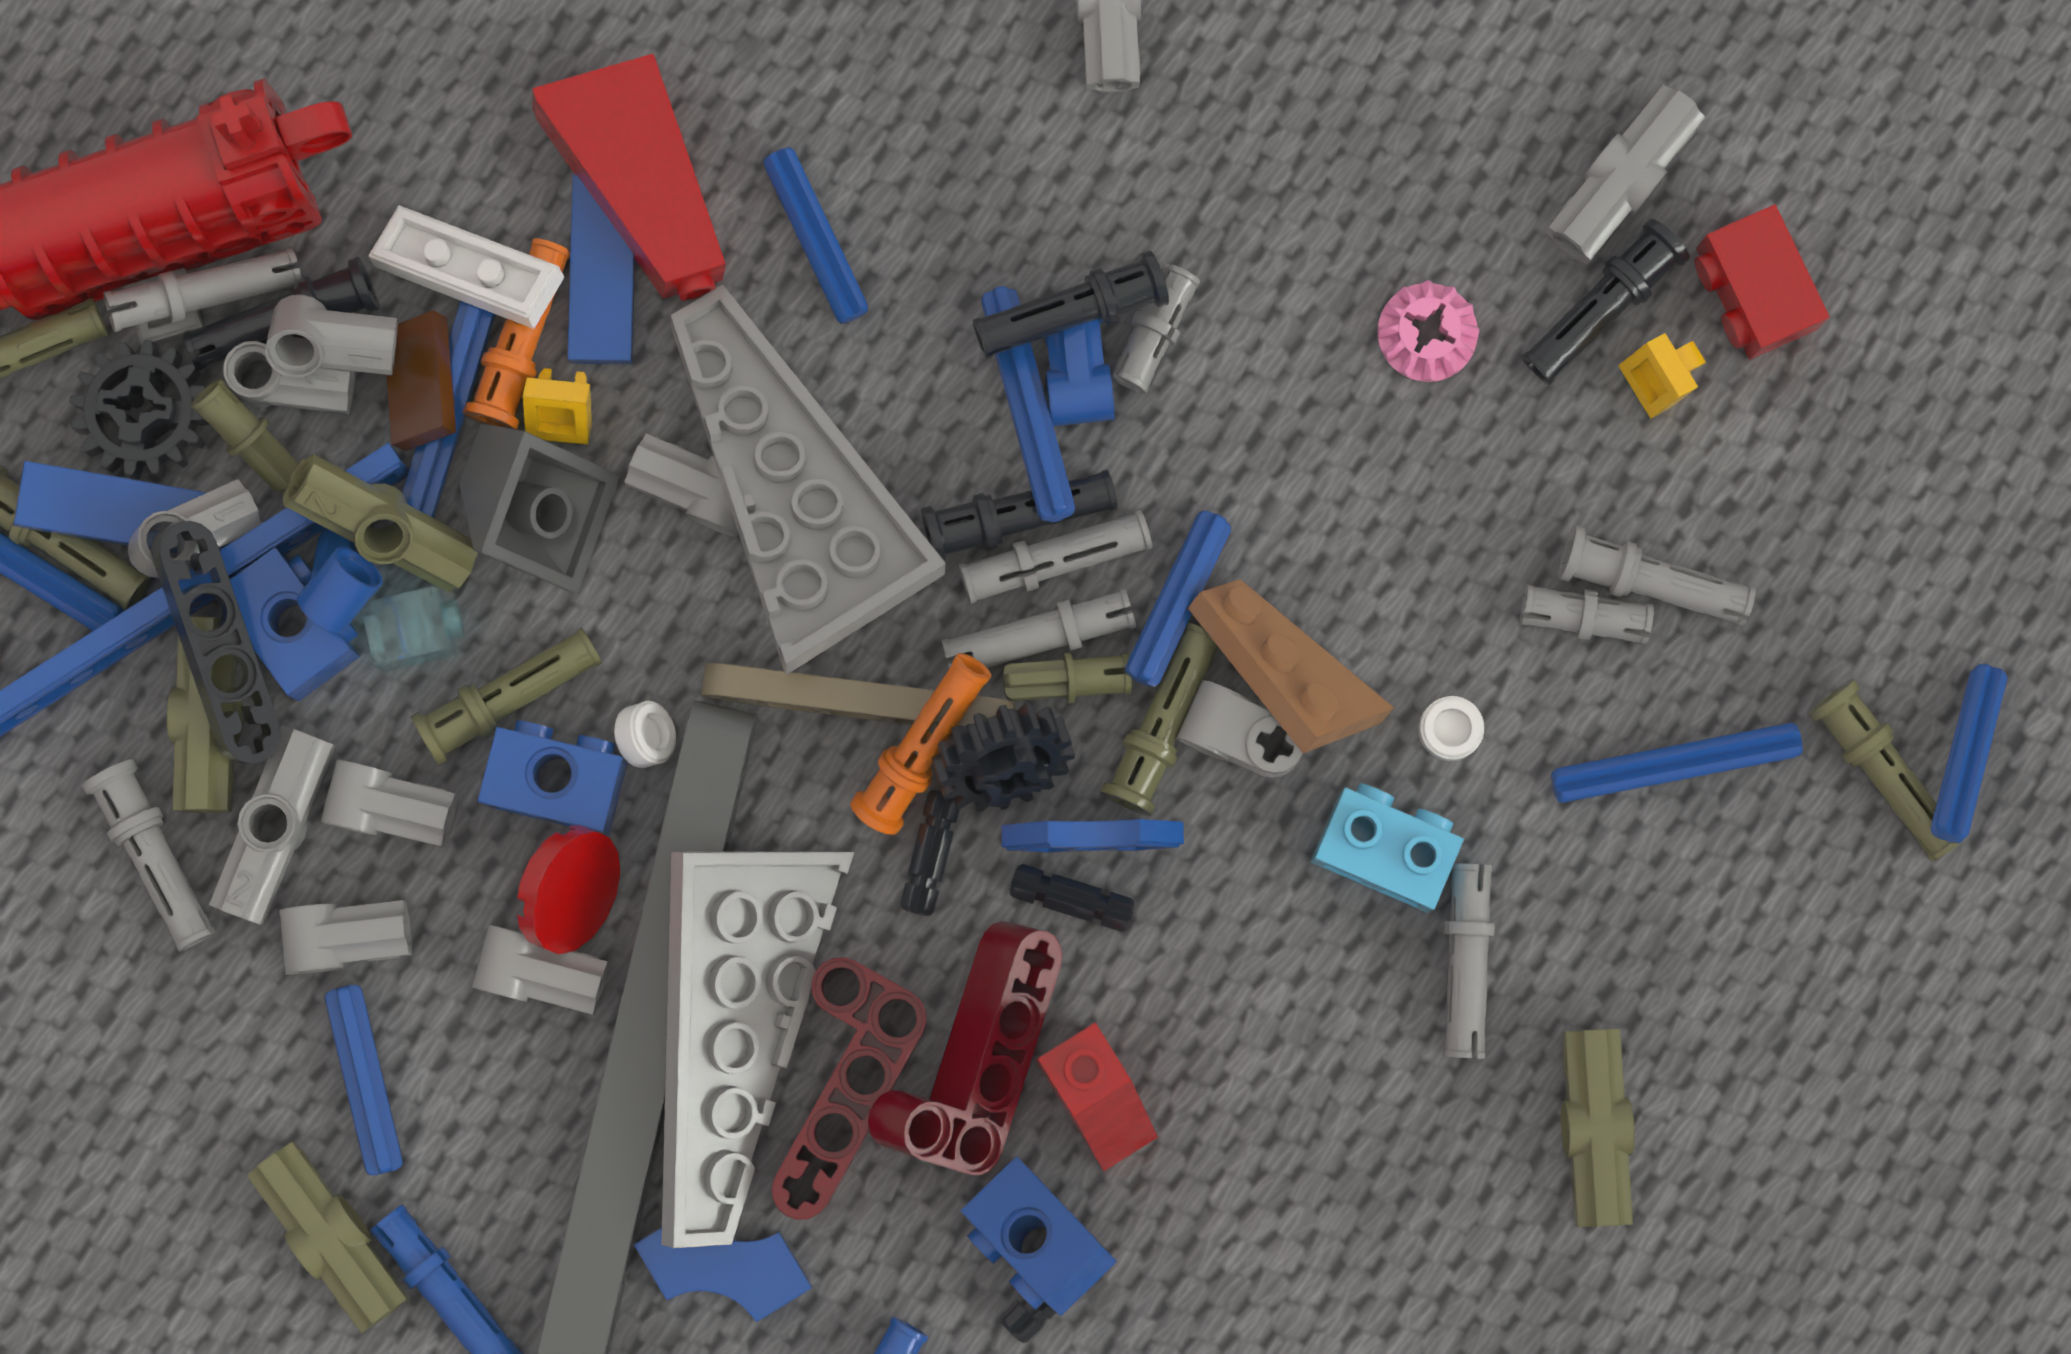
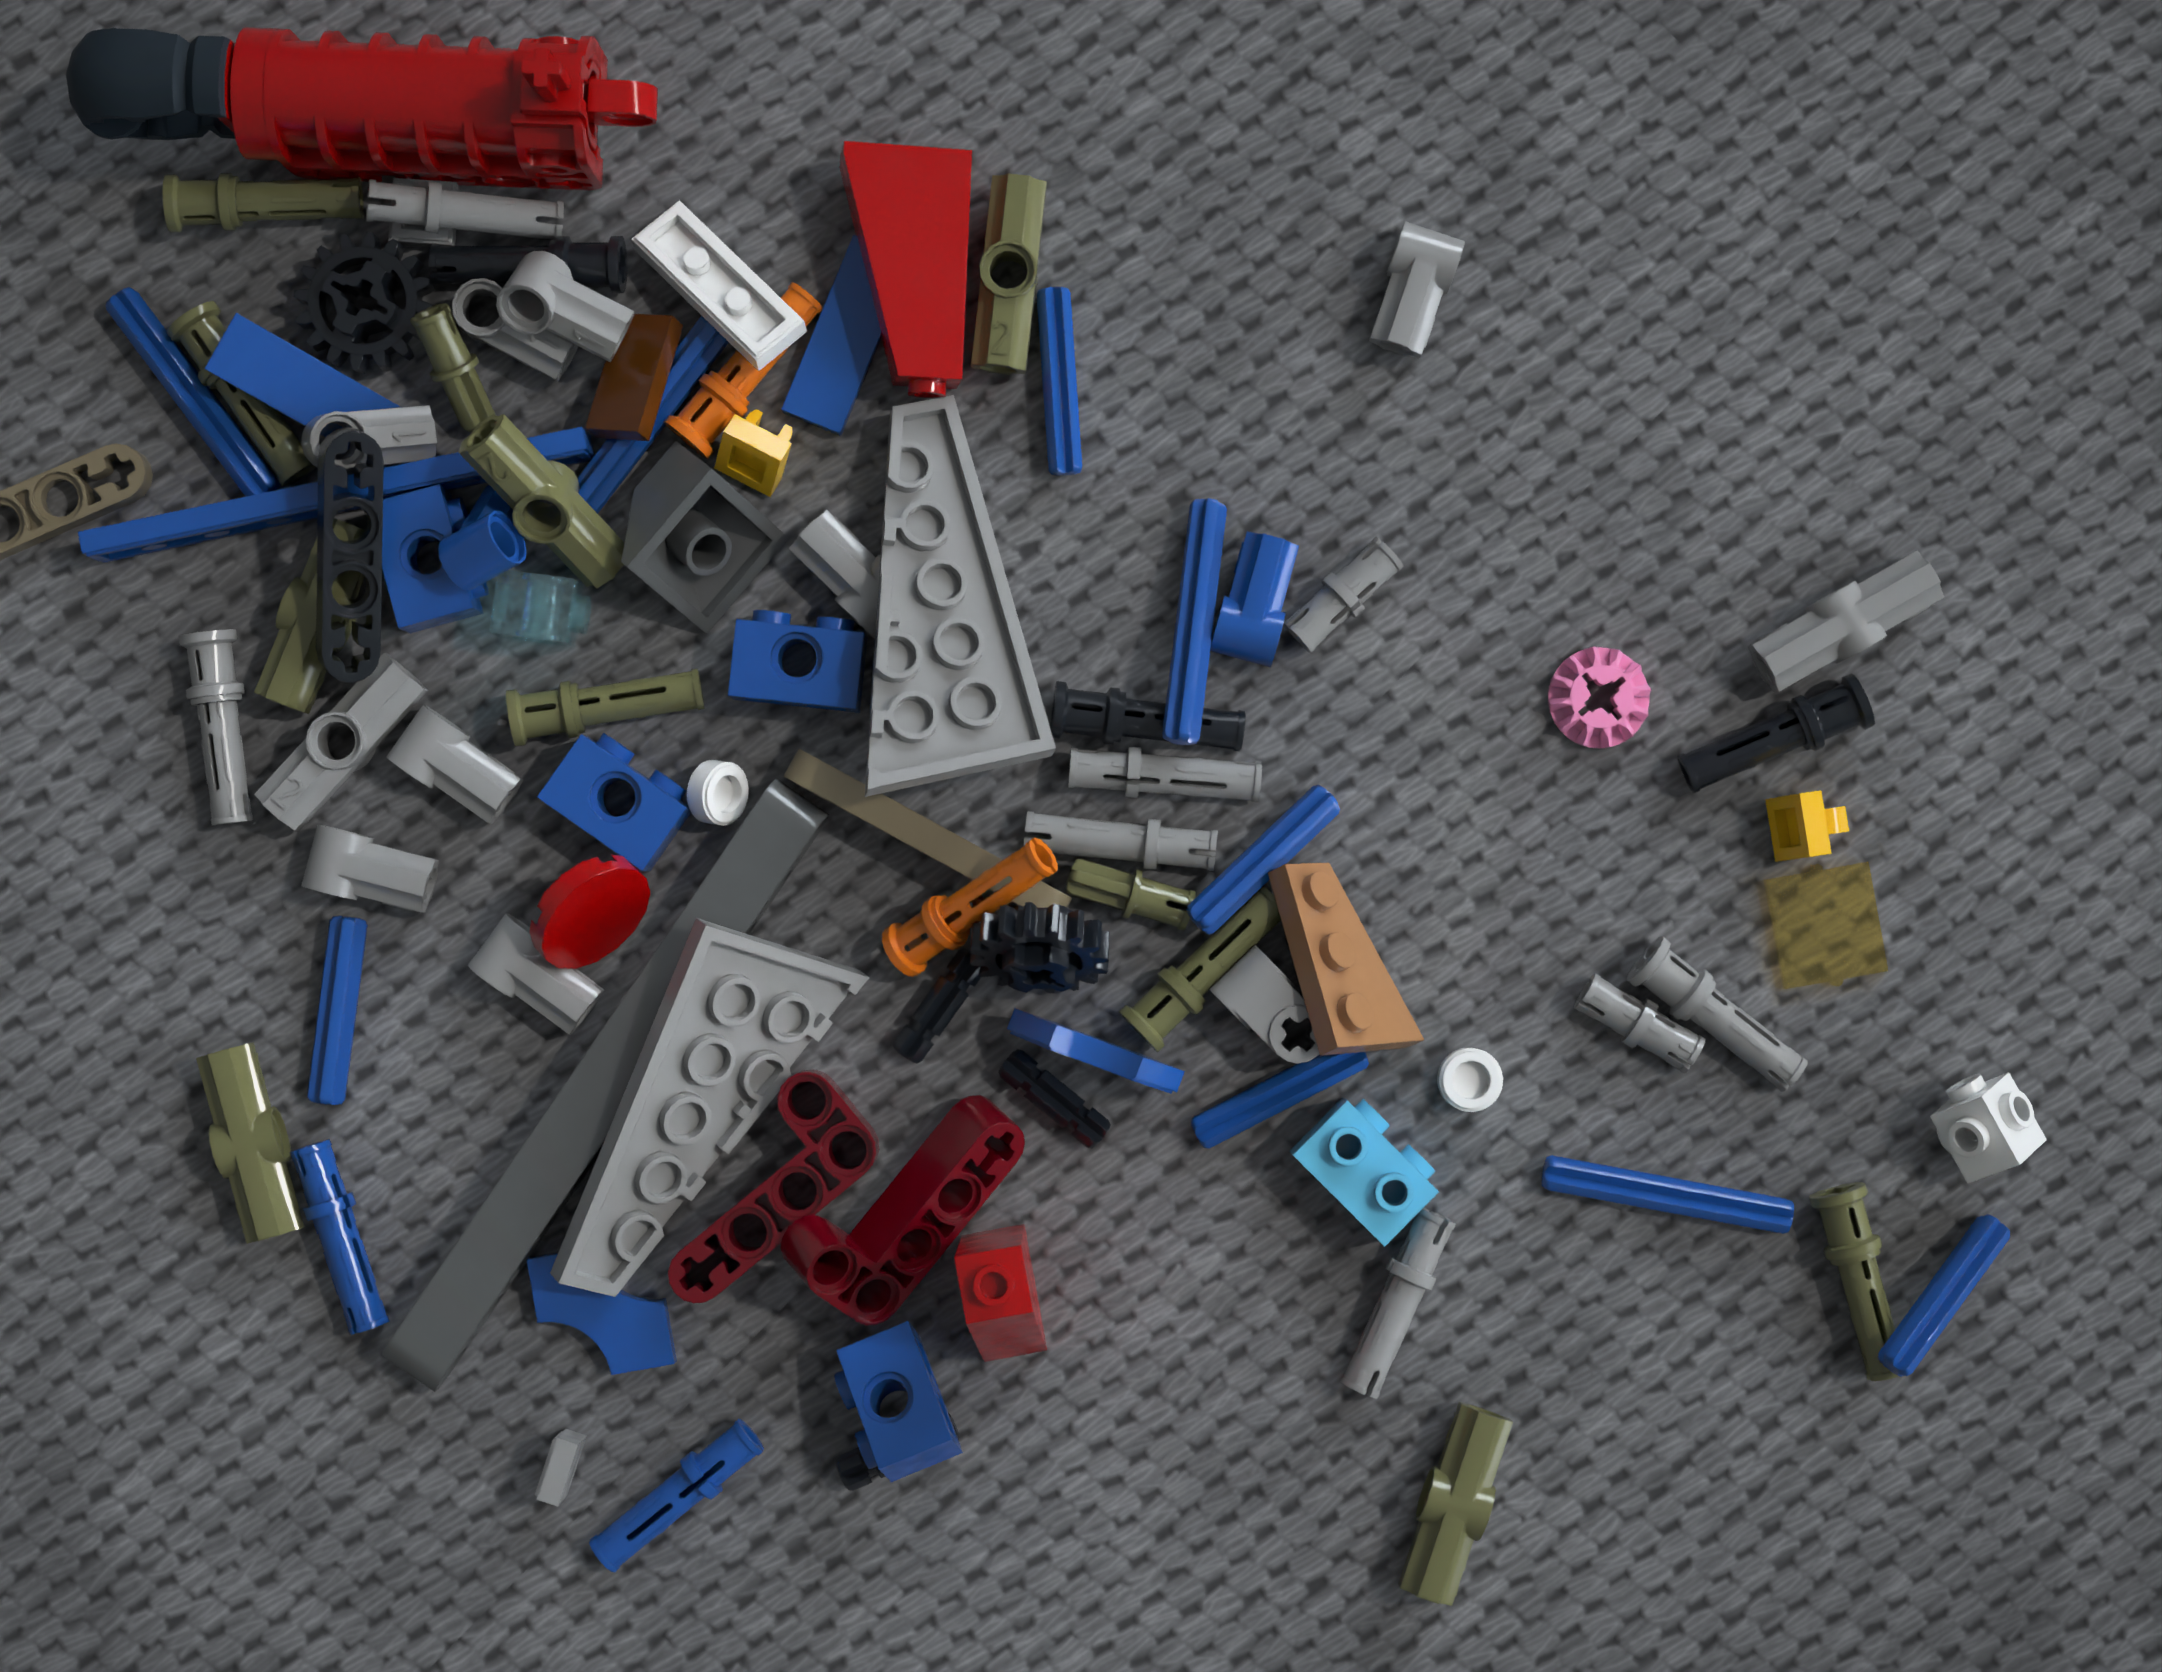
camera: 20 degrees right, 5 degrees up
(712, 594) = (759, 671): none -> blue brick
(721, 120) = (1014, 236): none -> olive piece
(1100, 298) = (1302, 549): black pin -> none
(1277, 812) = (1274, 1096): none -> blue axle
(1720, 459) = (1826, 925): none -> clear yellow piece
(1760, 283) = (1931, 775): red brick -> none
(1943, 581) = (1987, 1126): none -> white brick

